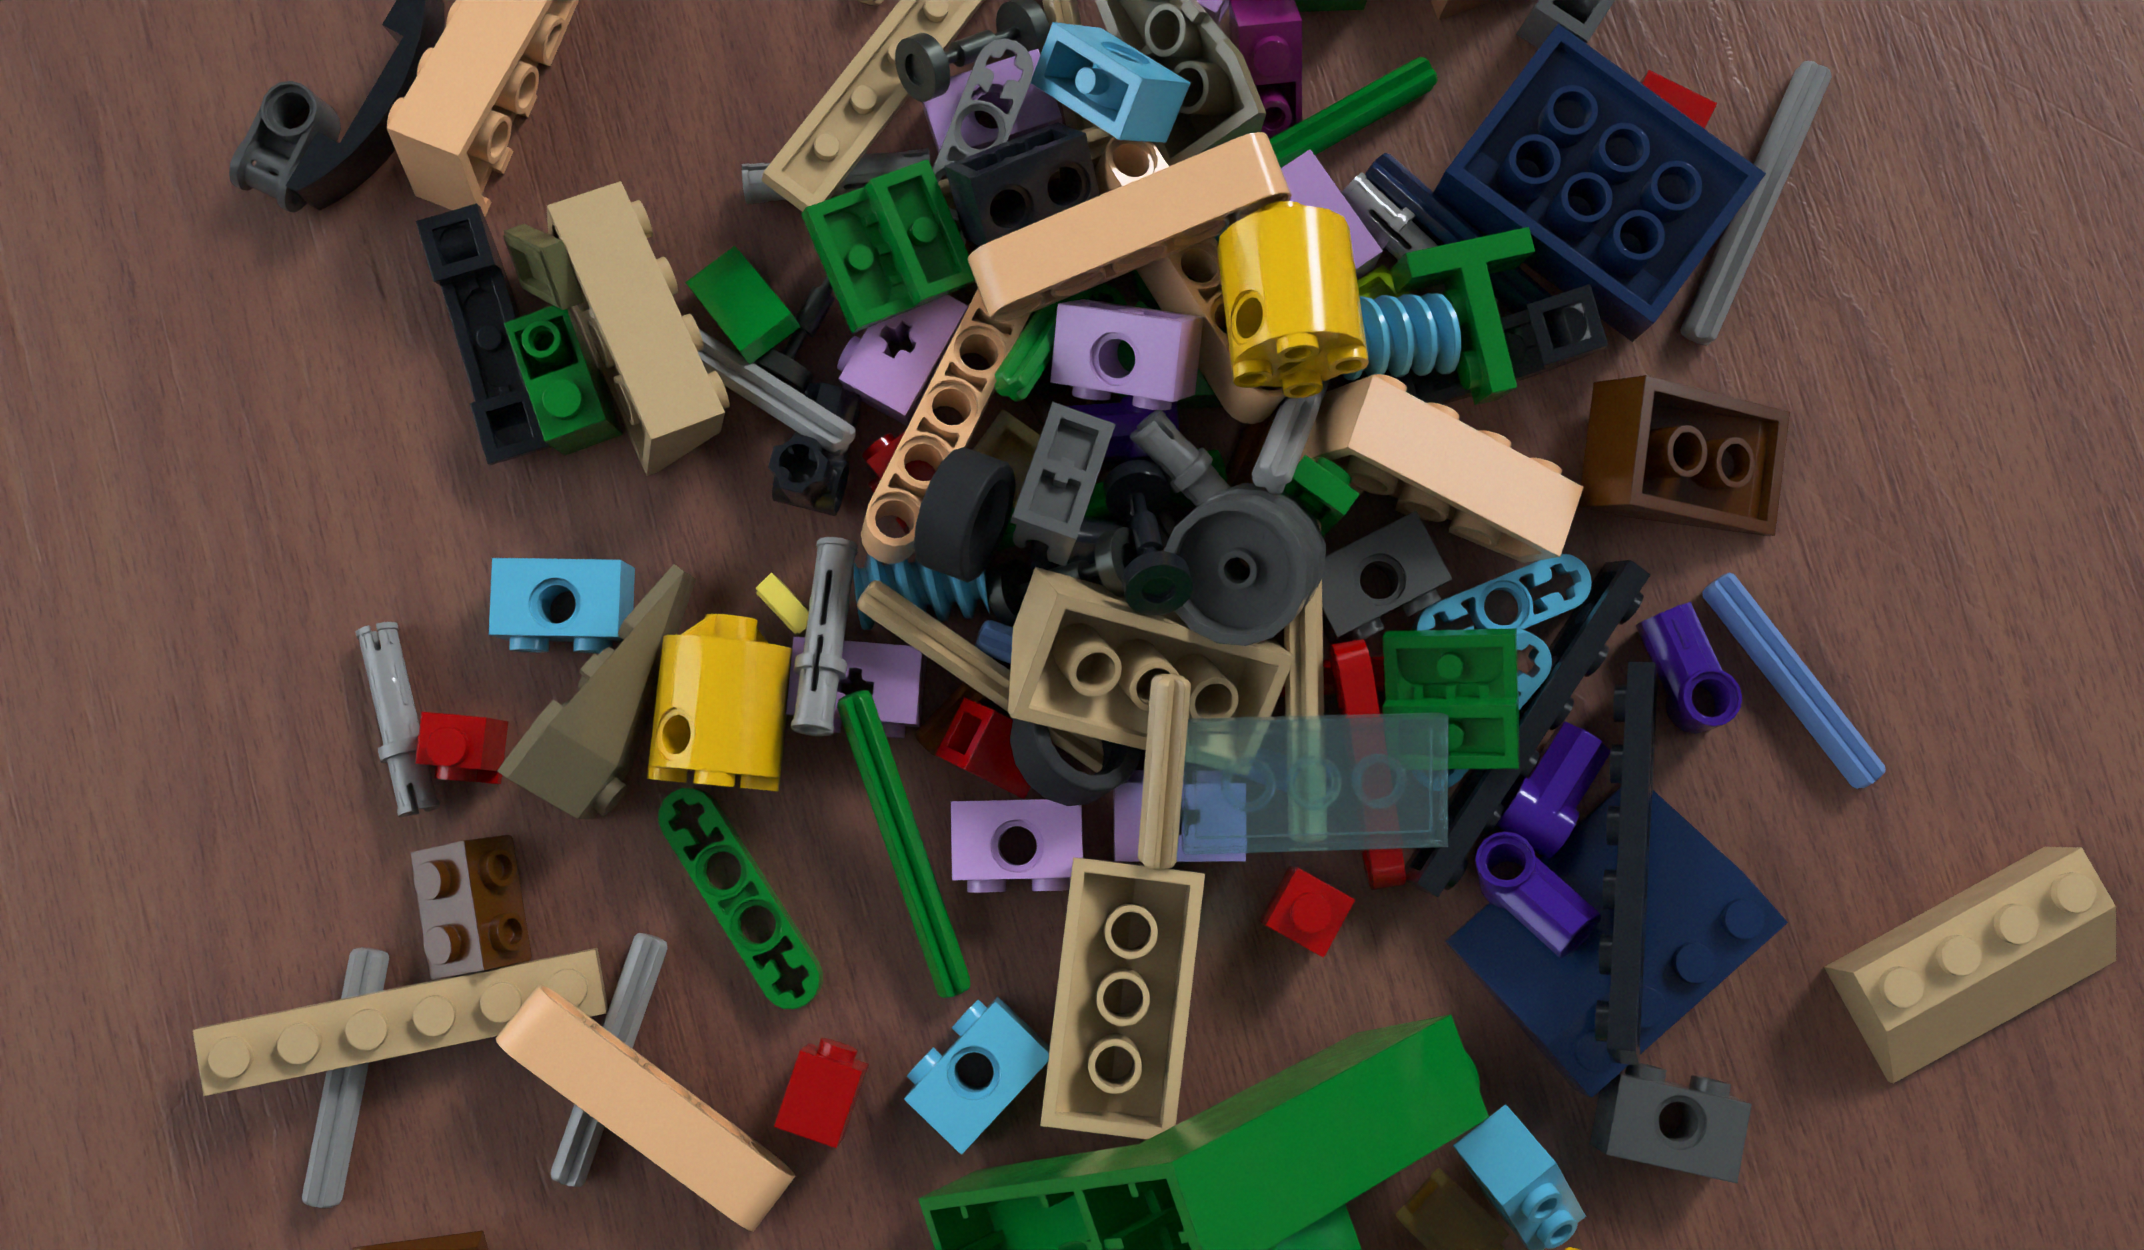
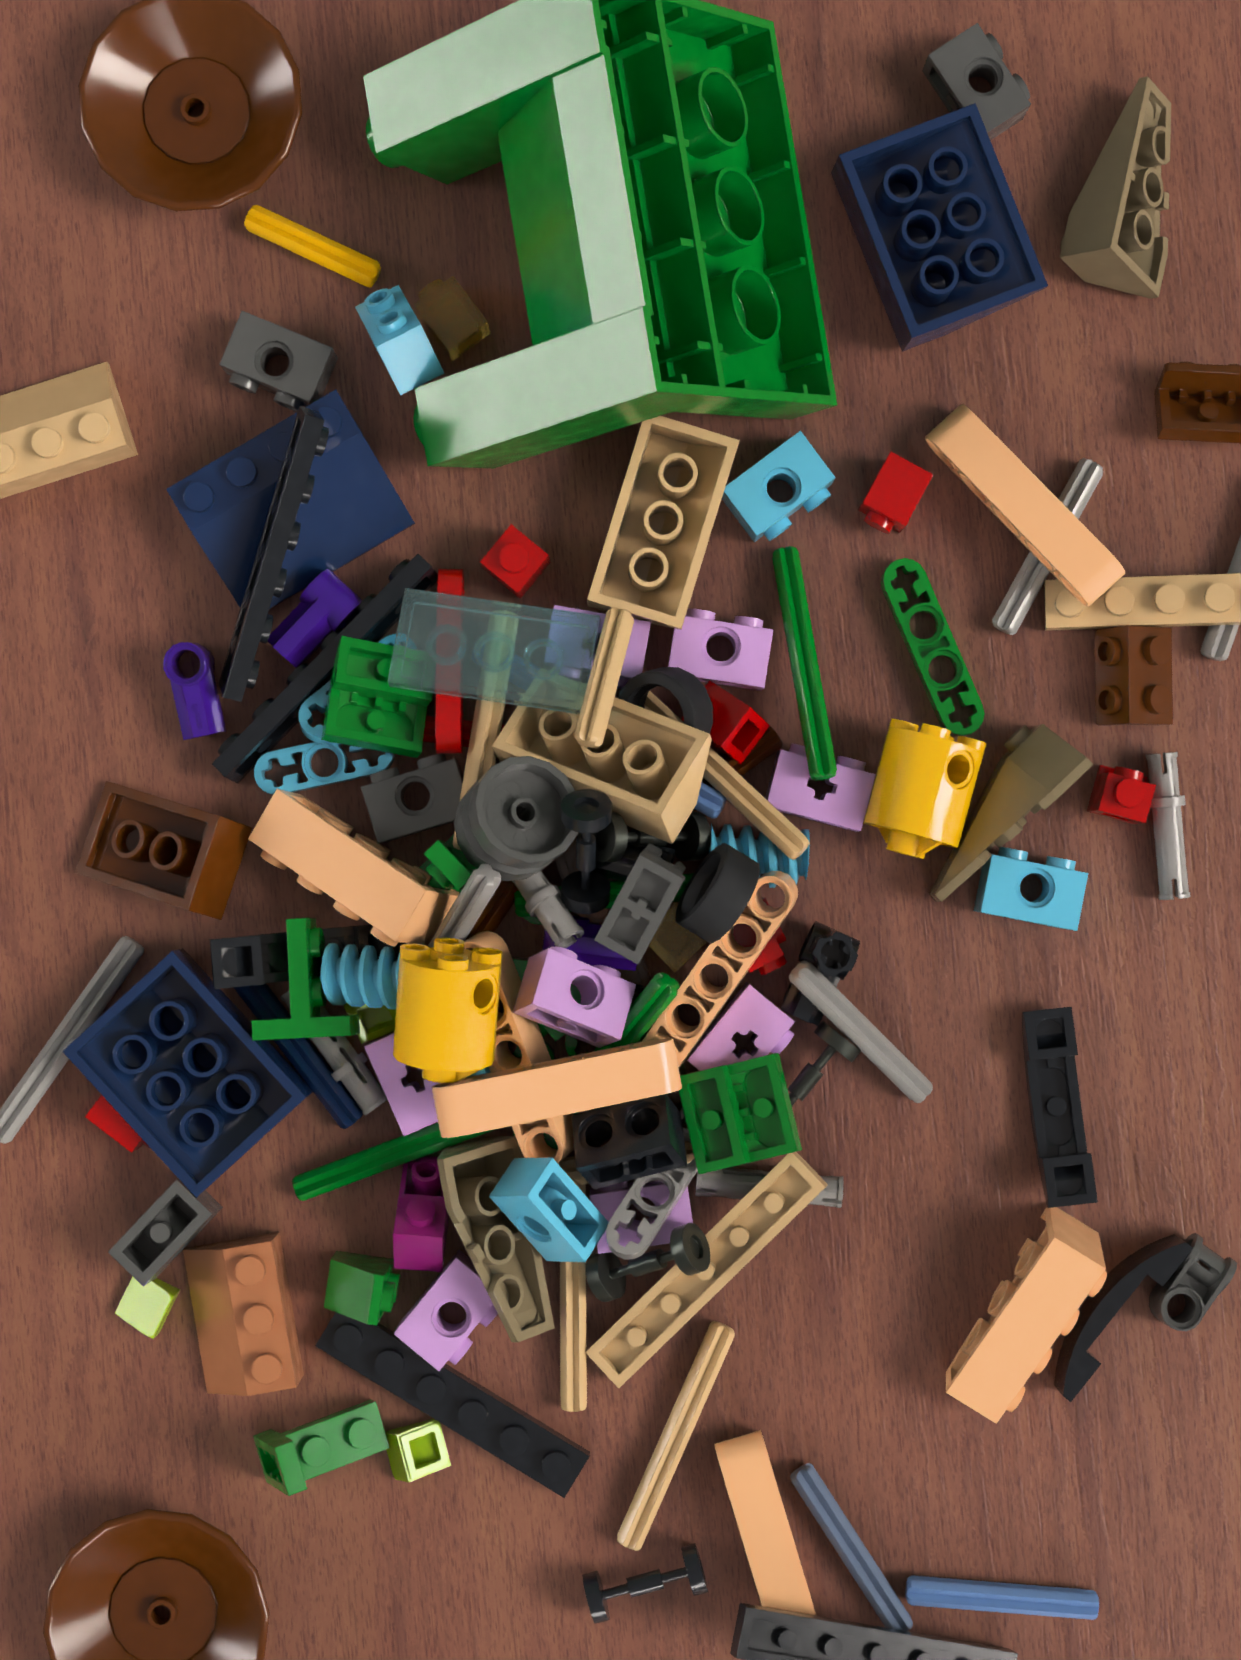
camera: 170 degrees left, 5 degrees up
(543, 266) = (1005, 1148): olive tile -> none
(562, 380) = (1004, 1061): green slope -> none
(636, 327) = (942, 1090): tan slope -> none
(742, 304) = (858, 1095): green tile -> none
(784, 604) = (861, 856): light yellow tile -> none
(821, 660) = (838, 821): light grey pin -> none
(1536, 896) = (344, 541): dark purple piece -> none
(1793, 681) = (116, 668): medium blue axle -> none

